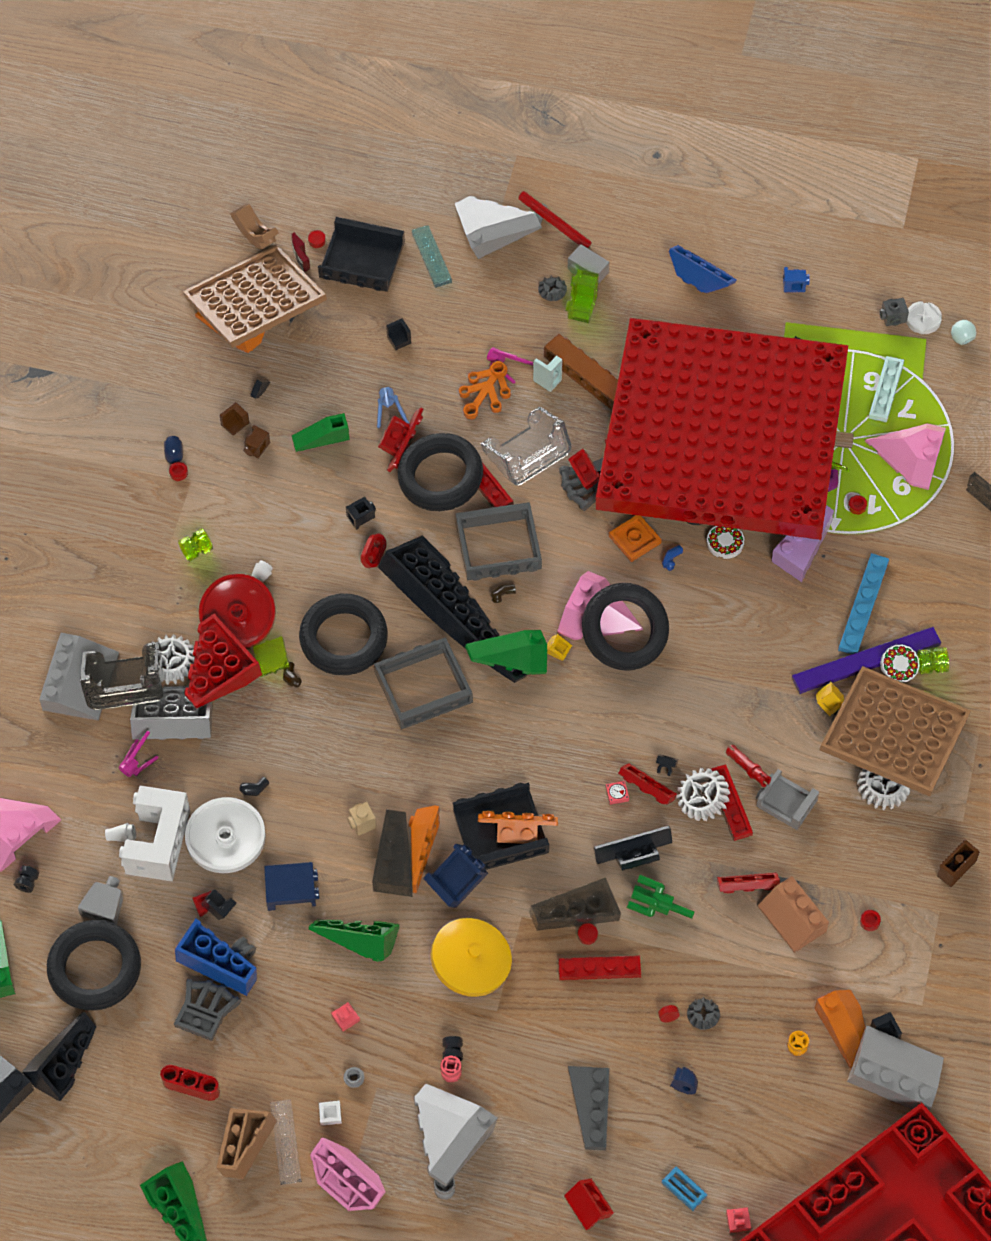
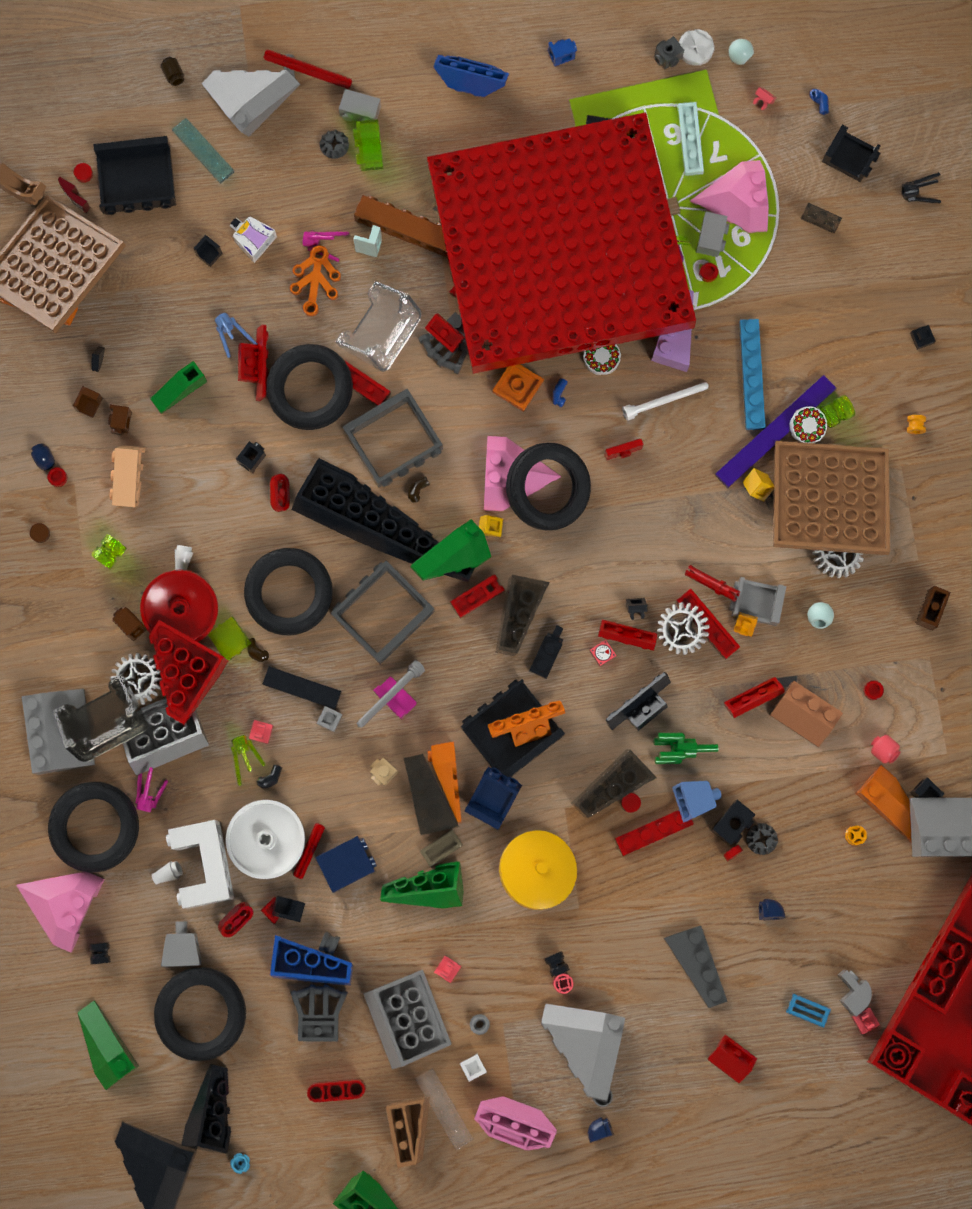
camera: 25 degrees left, 20 degrees up
(69, 1109) = (235, 1163): none -> medium azure plate
(83, 797) = (58, 827): none -> black tyre
(141, 510) = (39, 533): none -> reddish brown tile
(164, 895) = (235, 919): none -> red plate
(186, 608) = (128, 623): none -> reddish brown brick
(239, 751) = (242, 746): none -> clear neon green plant
(241, 487) = (126, 476): none -> light nougat wedge
(258, 866) = (308, 851): none -> red axle
(263, 746) = (261, 732): none -> coral tile
(286, 1044) = (407, 1019): none -> light grey slope
(319, 722) = (301, 688): none -> black tile
(332, 756) = (329, 719): none -> light grey plate
(387, 907) = (441, 848): none -> dark tan tile
(401, 761) = (401, 703): none -> dark pink panel
(428, 1219) = (599, 1130): none -> dark blue piece
(431, 743) = (414, 670): none -> light grey piece
(433, 185) = (172, 71): none -> dark brown brick
(444, 337) = (252, 236): none -> white torso
(518, 701) = (476, 596): none -> red plate
(554, 723) = (519, 609): none -> clear smoke wedge
(564, 774) = (547, 653): none -> black hinge
(652, 949) = (695, 798): none -> medium blue torso
(686, 976) = (723, 828): none -> black brick
(712, 624) = (624, 450): none -> red plate
(733, 595) = (631, 411): none -> white piece
(740, 1190) = (859, 995): none -> light grey brick
(766, 815) = (745, 624): none -> light orange tile
(843, 831) = (820, 615): none -> light aqua piece
(860, 974) = (885, 749): none -> coral head
(873, 472) = (712, 233): none -> light grey brick
(972, 377) = (765, 96): none -> coral tile

